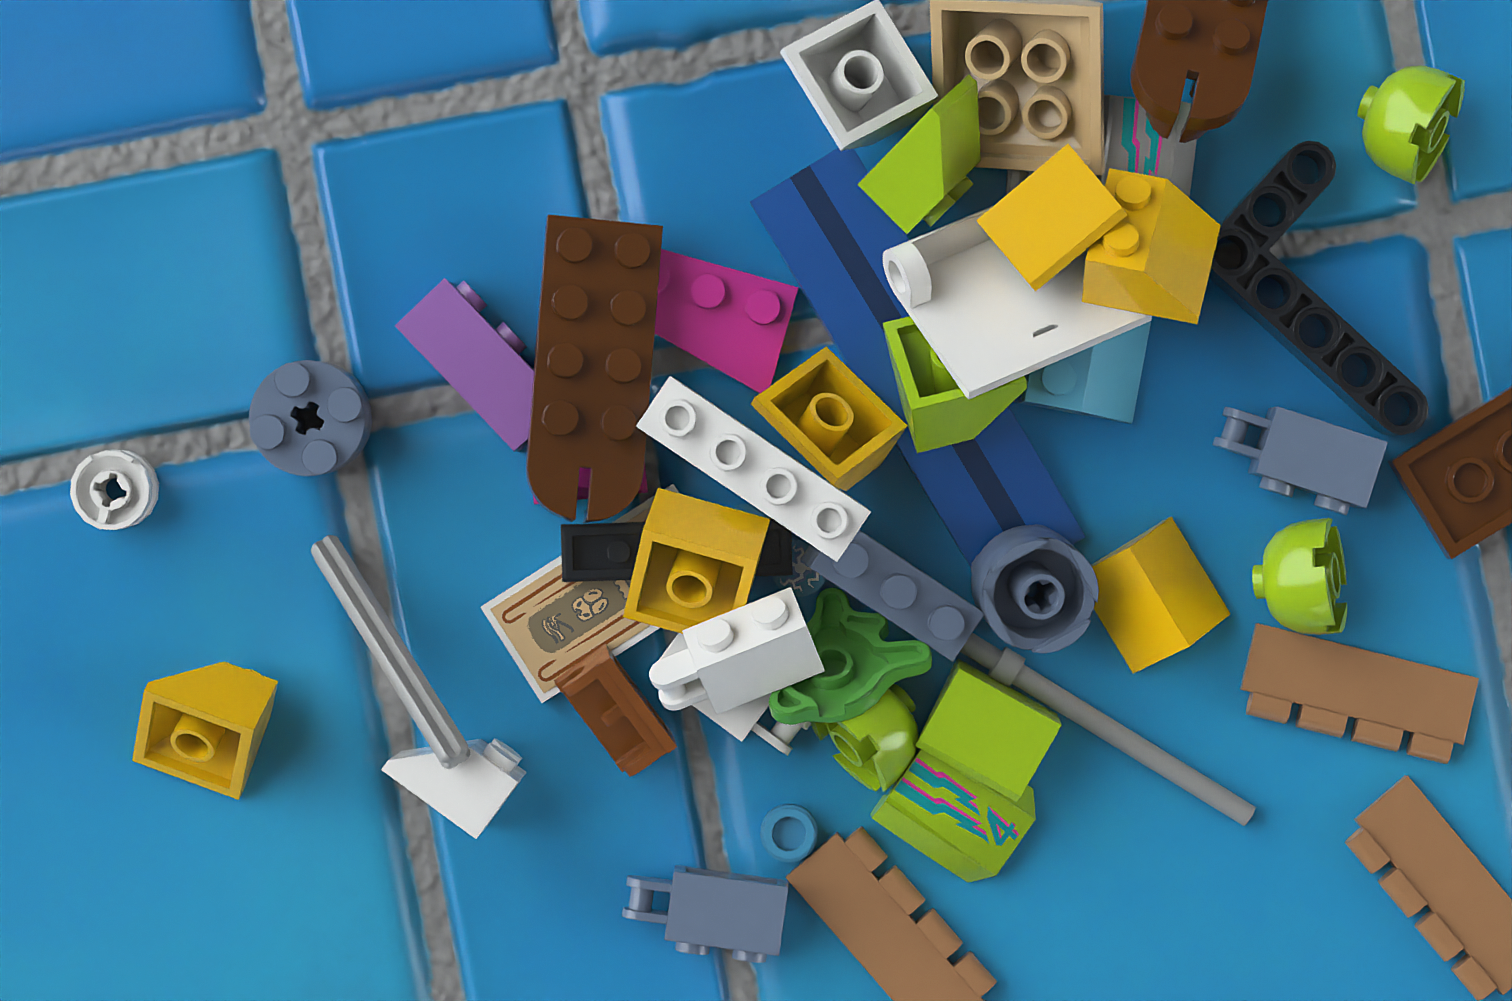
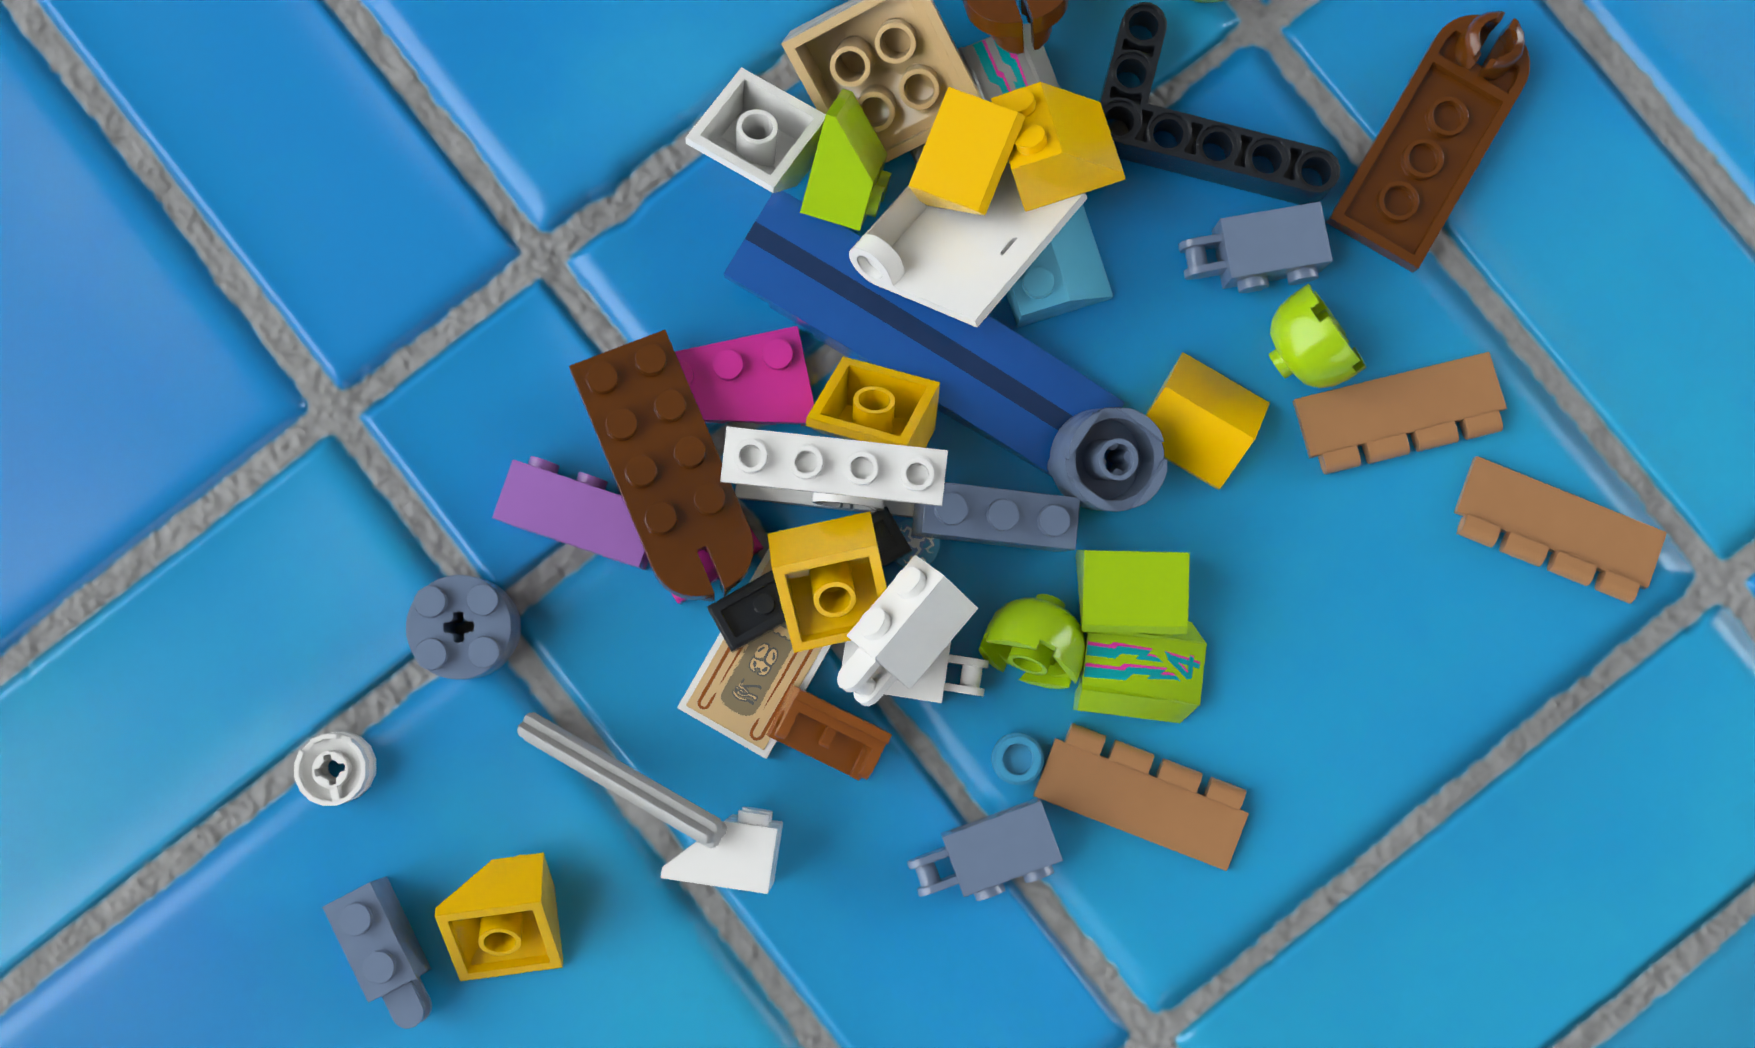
camera: 20 degrees left, 5 degrees down
(73, 692) = (382, 950): none -> sand blue brick
(855, 663) = (1000, 590): bright green tile -> none
(930, 397) = (949, 347): lime slope -> none
(1009, 668) = (1121, 536): light grey bar -> none

